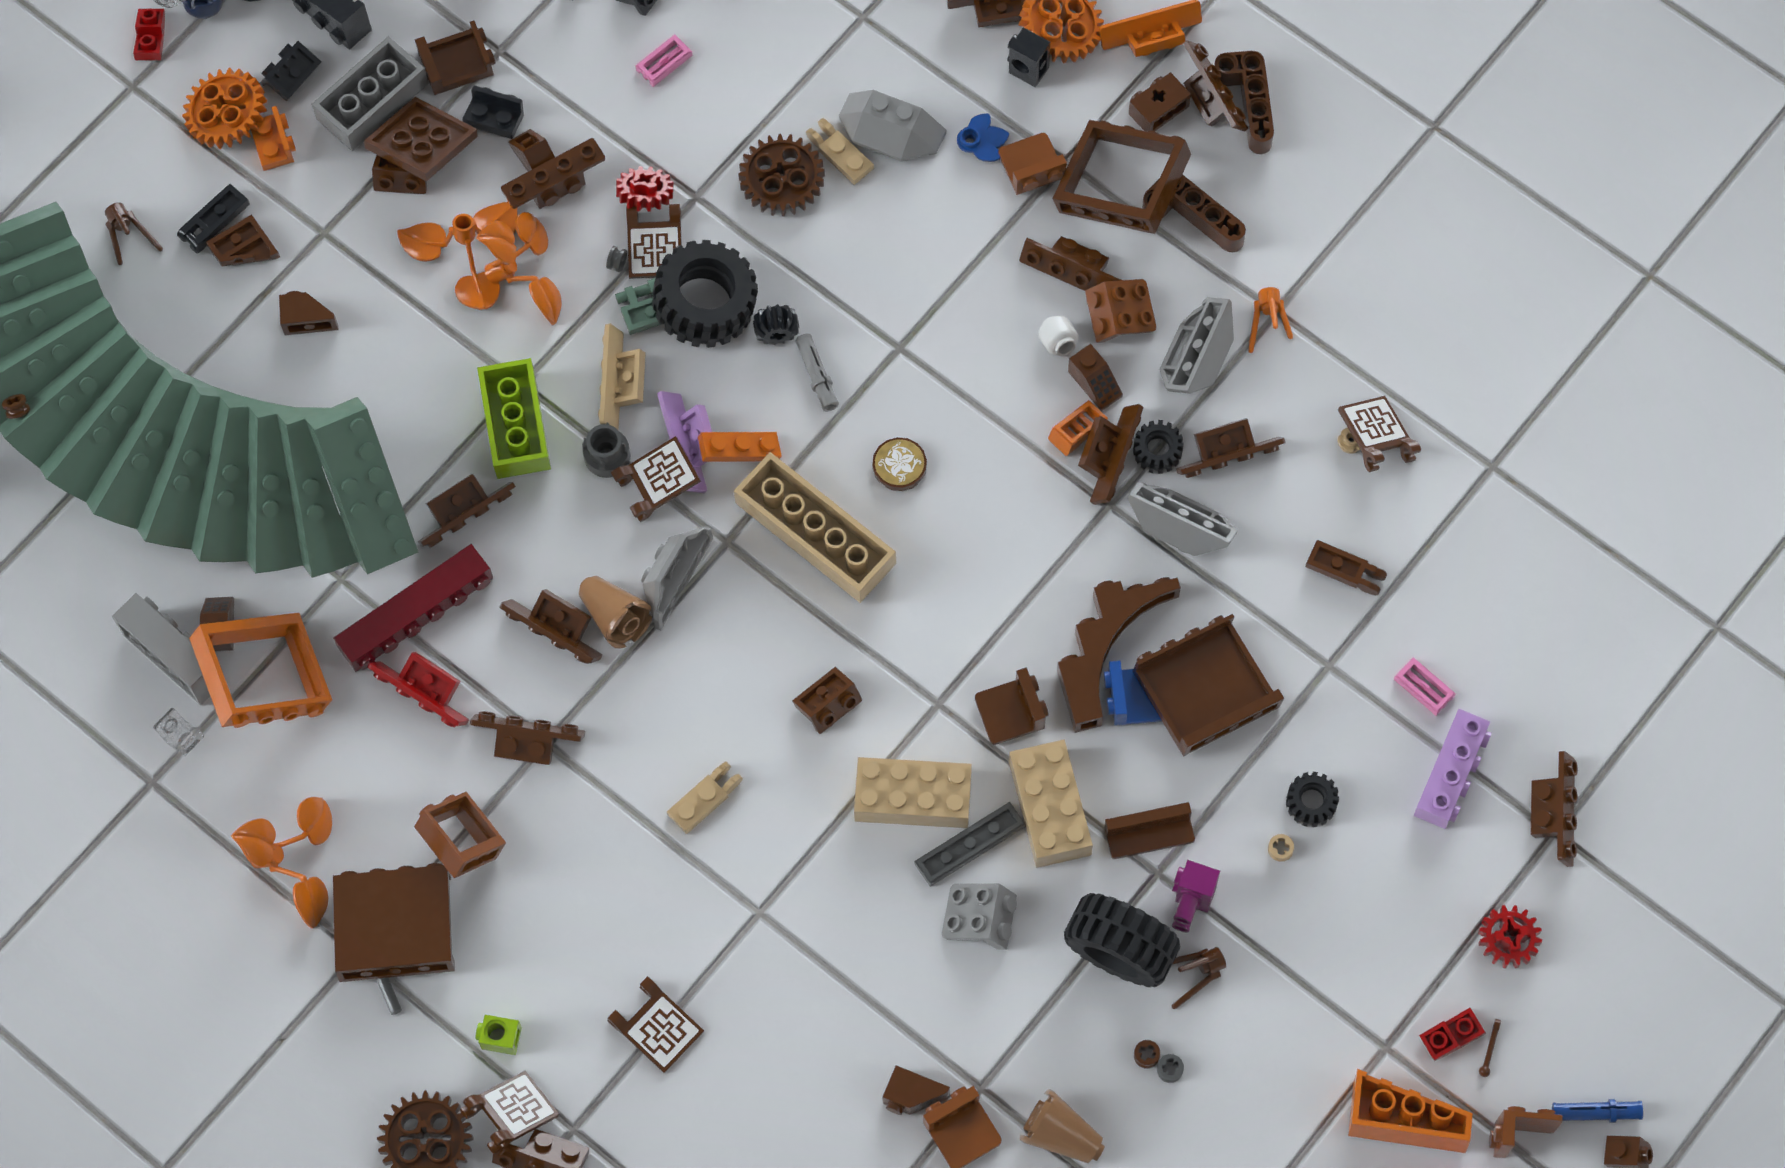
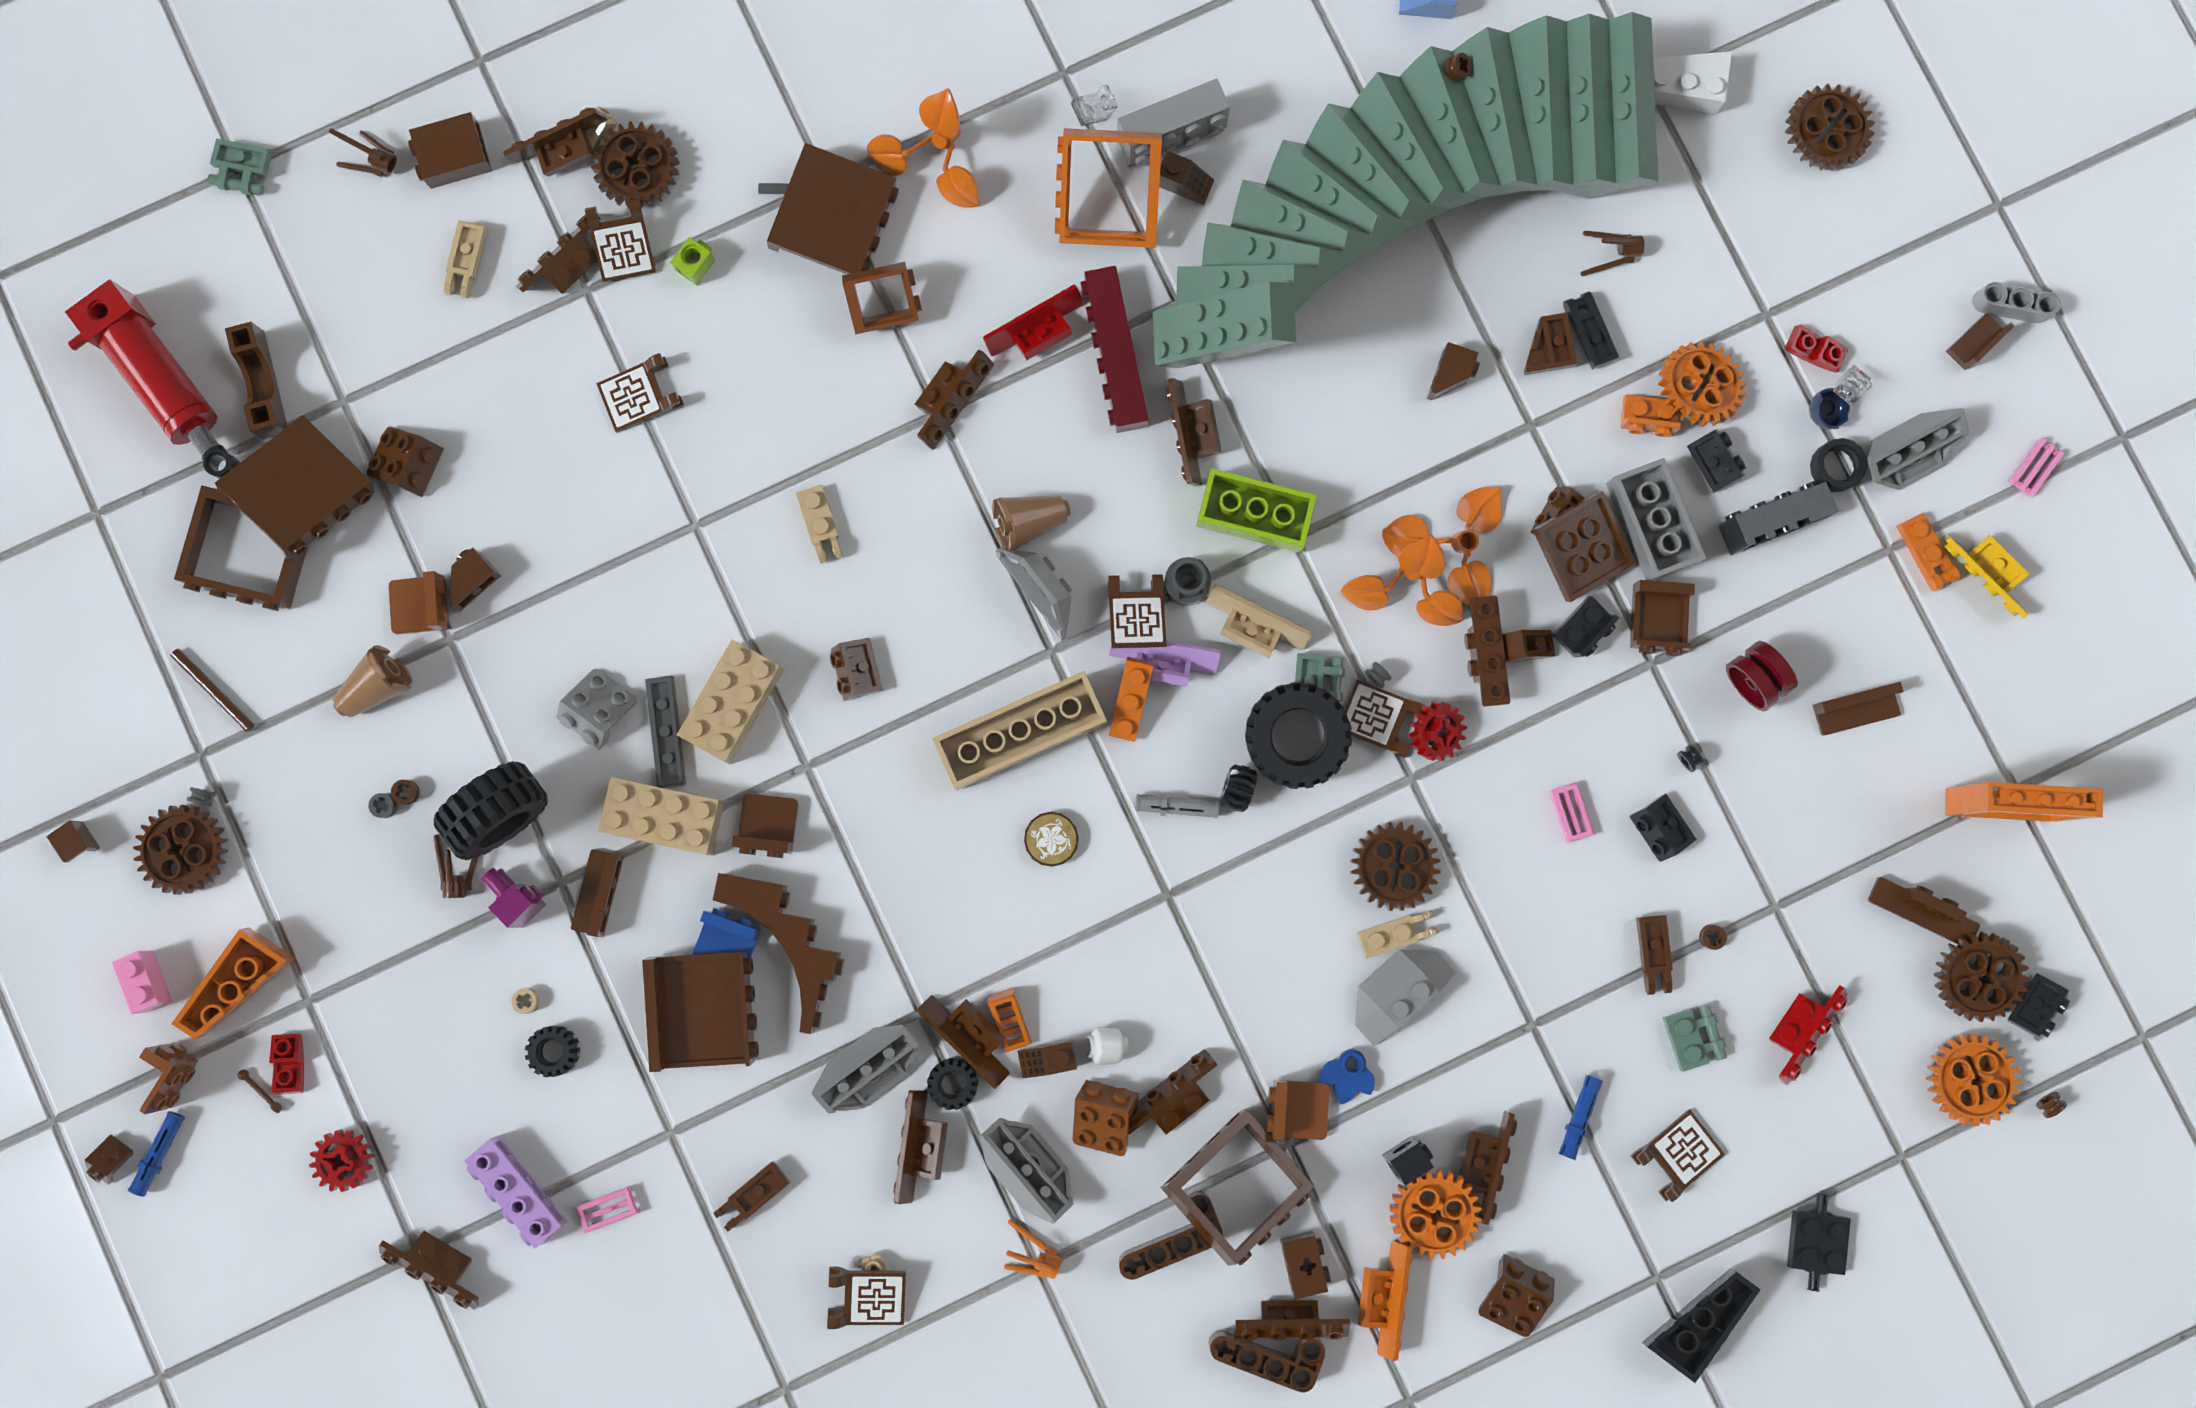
camera: 110 degrees right, 15 degrees up
(556, 621) = (1041, 464): reddish brown bracket -> none

